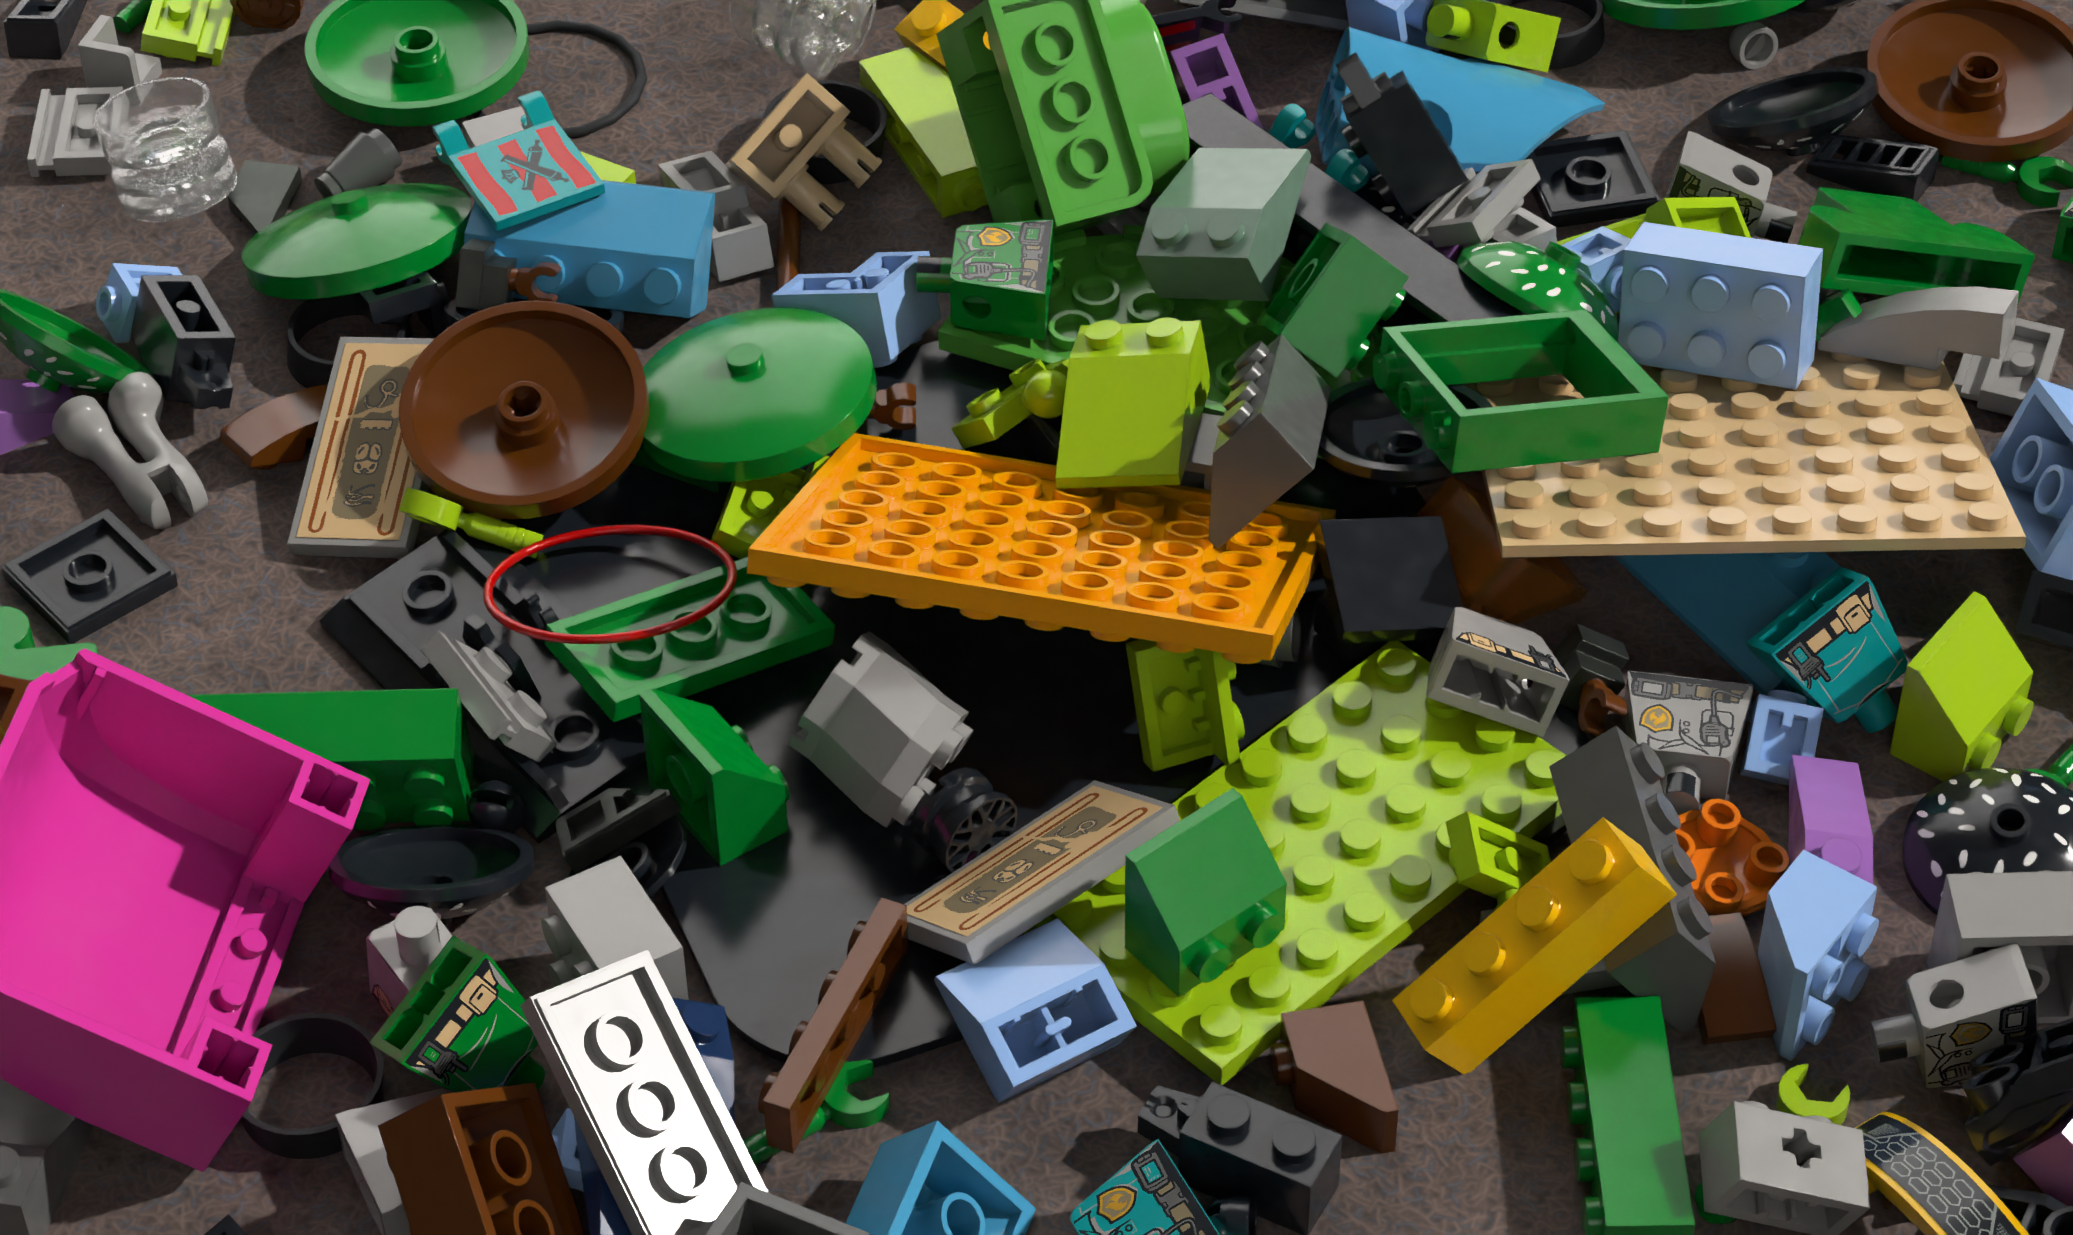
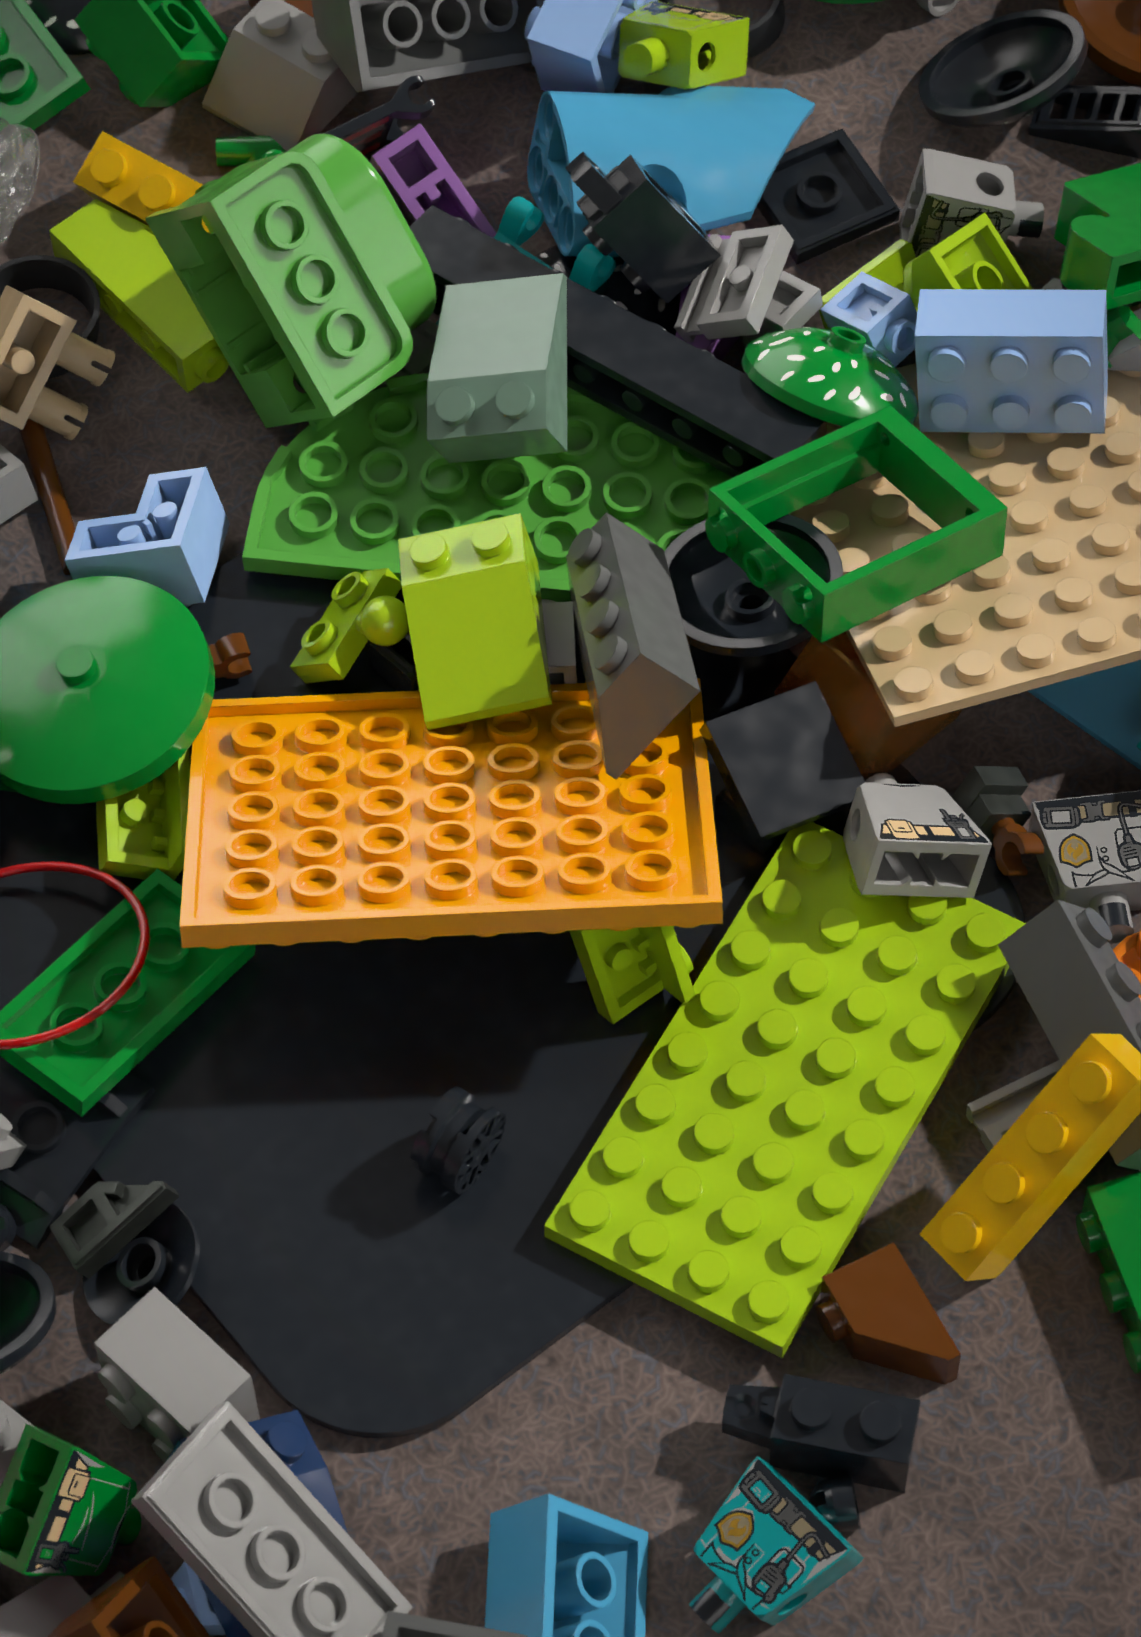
camera: 15 degrees left, 15 degrees up
(715, 776) = (198, 1150): green slope -> none
(837, 1106) = (408, 1492): green piece -> none
(843, 1011) = (401, 1424): reddish brown plate -> none
(881, 731) = (350, 1064): light grey brick -> none
(996, 277) = (287, 486): green torso -> none
(1035, 871) = (542, 1178): tile -> none
(1035, 1008) = (589, 1329): light blue slope -> none
(1202, 895) = (725, 1186): green slope -> none
(1334, 300) = (635, 447): green slope -> none
(1493, 856) = (982, 1057): lime plate -> none

